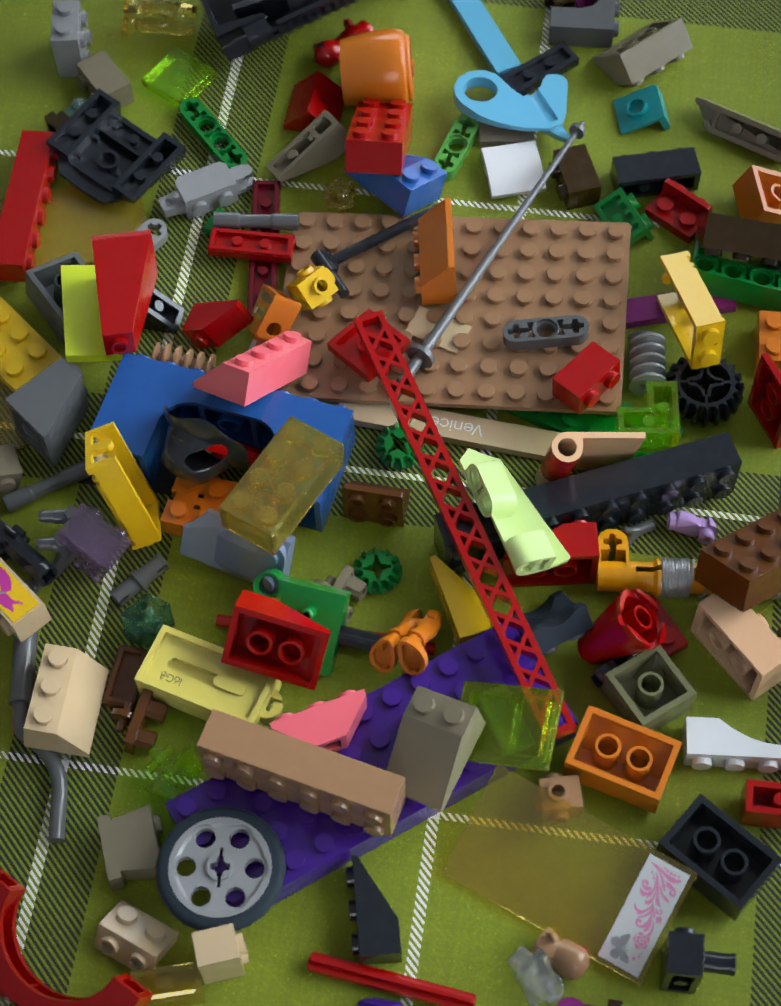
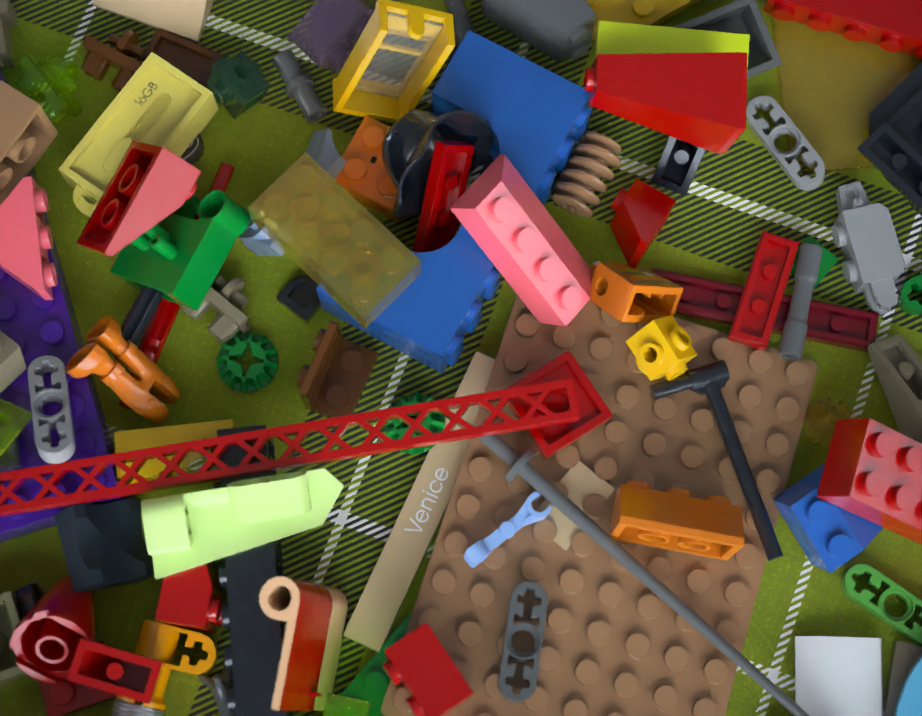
camera: 100 degrees right, 15 degrees up
(316, 544) = (301, 297): none -> black tile
(455, 349) = (482, 549): none -> light blue piece
(473, 666) = (62, 420): none -> light grey beam
(645, 563) = (116, 671): none -> red slope

